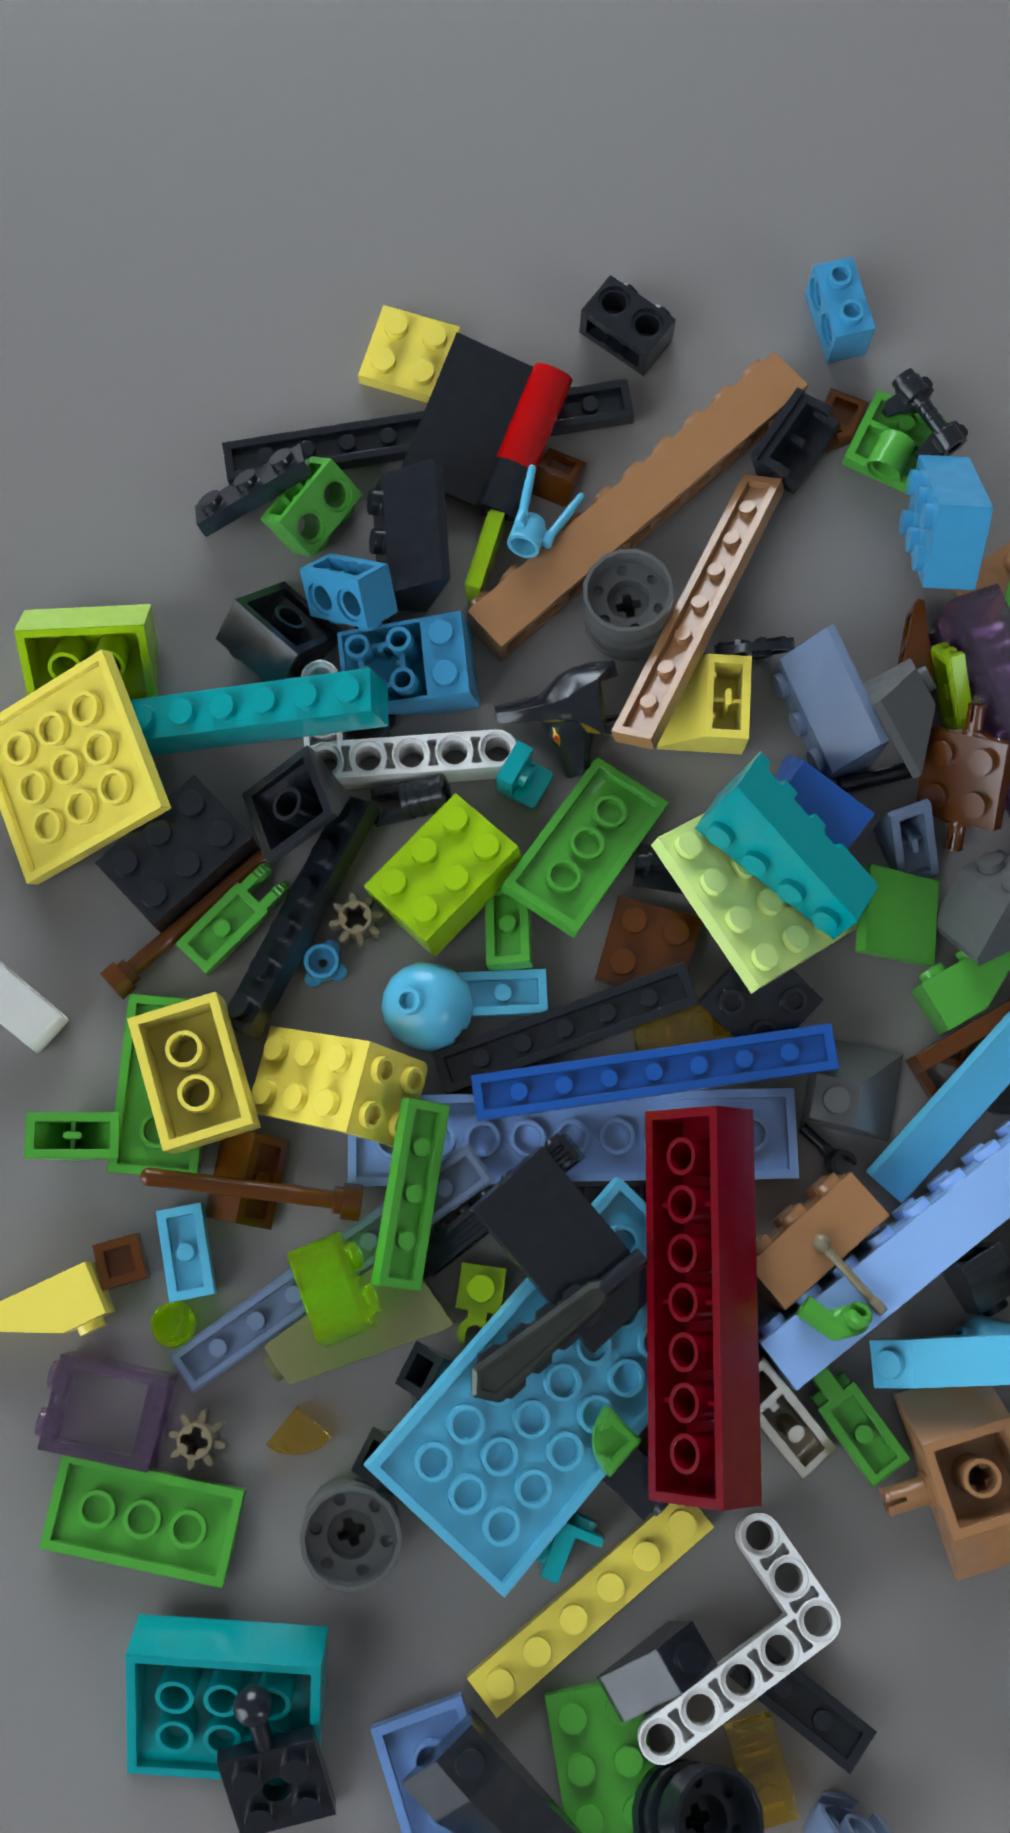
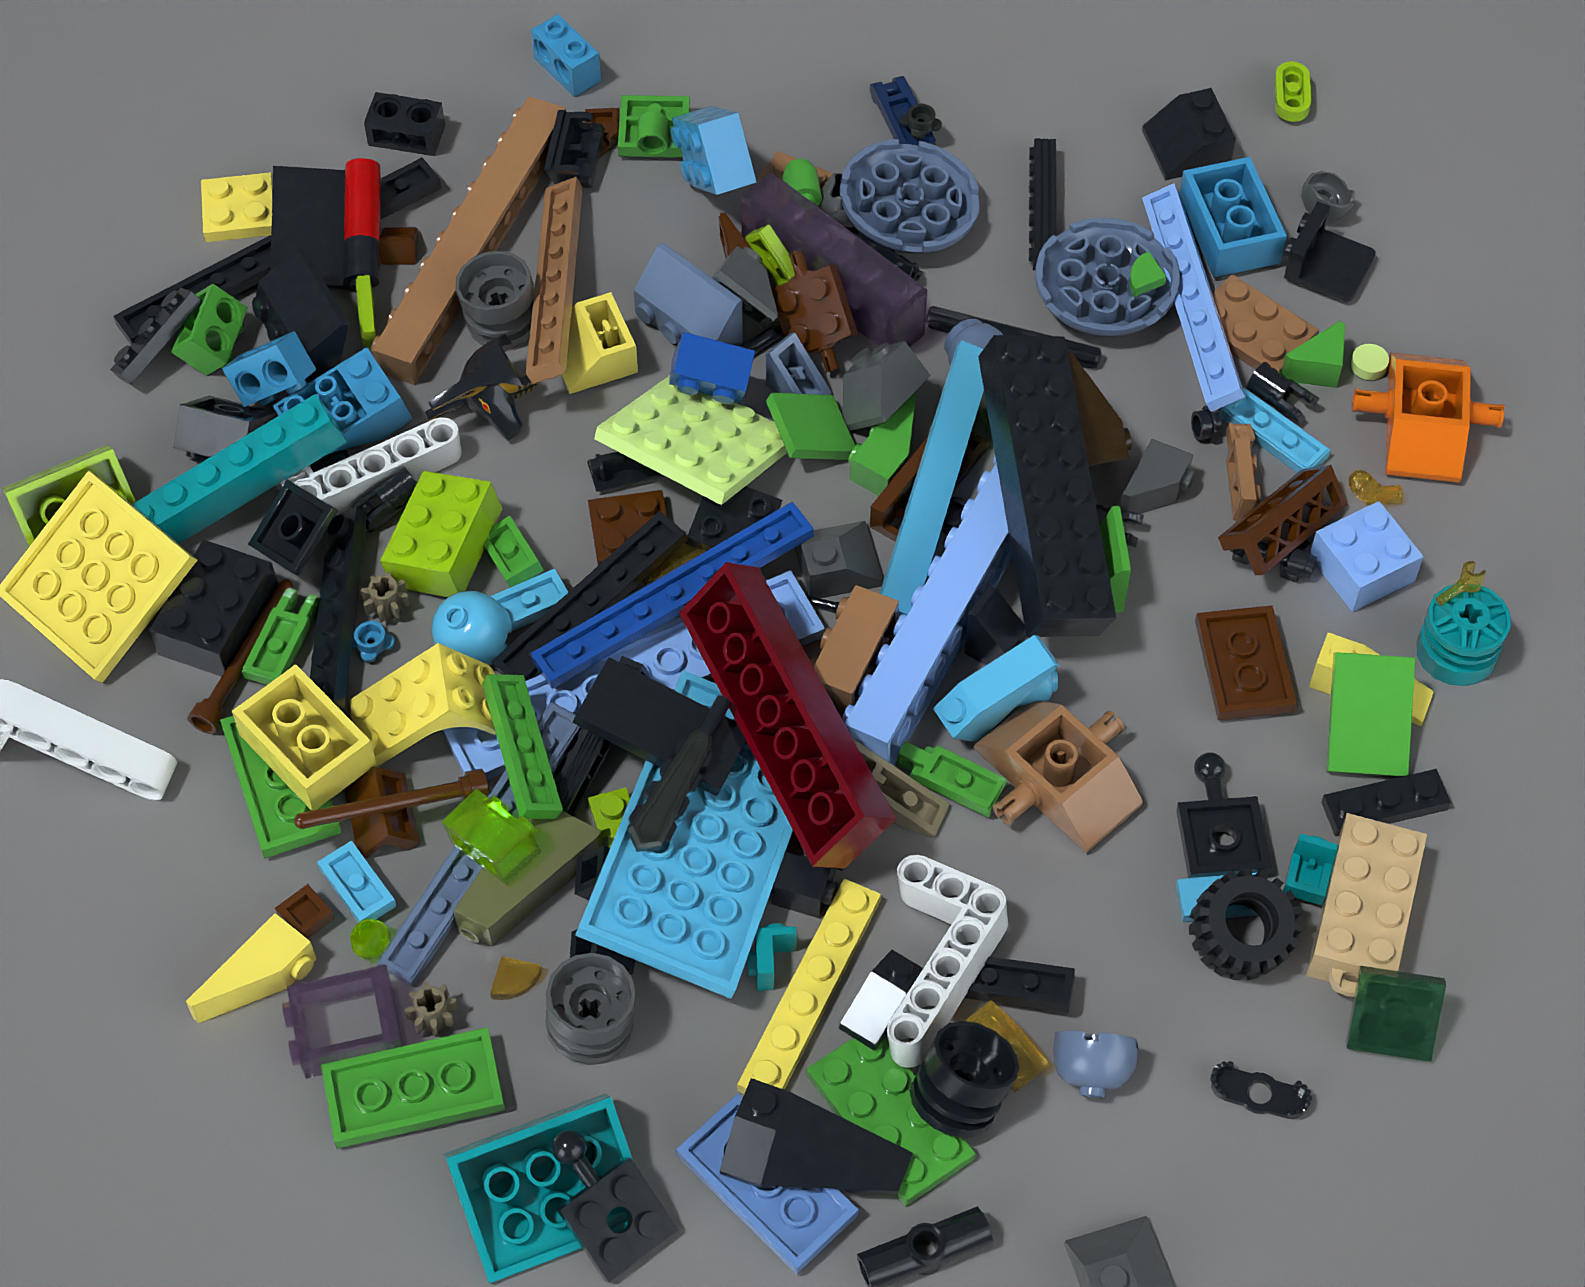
camera: 25 degrees left, 20 degrees down
(72, 1136) = (223, 833): bright green slope -> none
(522, 778) = (468, 449): teal bracket -> none
(529, 528) = (394, 276): medium azure plant -> none
(584, 847) = (544, 473): bright green plate -> none
(612, 1441) = (766, 851): bright green tile -> none
(759, 649) = (616, 285): black wheel -> none
(787, 849) = (698, 396): teal wedge -> none
(822, 1243) = (916, 658): dark tan hinge -> none
(838, 1322) = (893, 682): bright green arm -> none
(913, 397) = (651, 87): black piece -> none

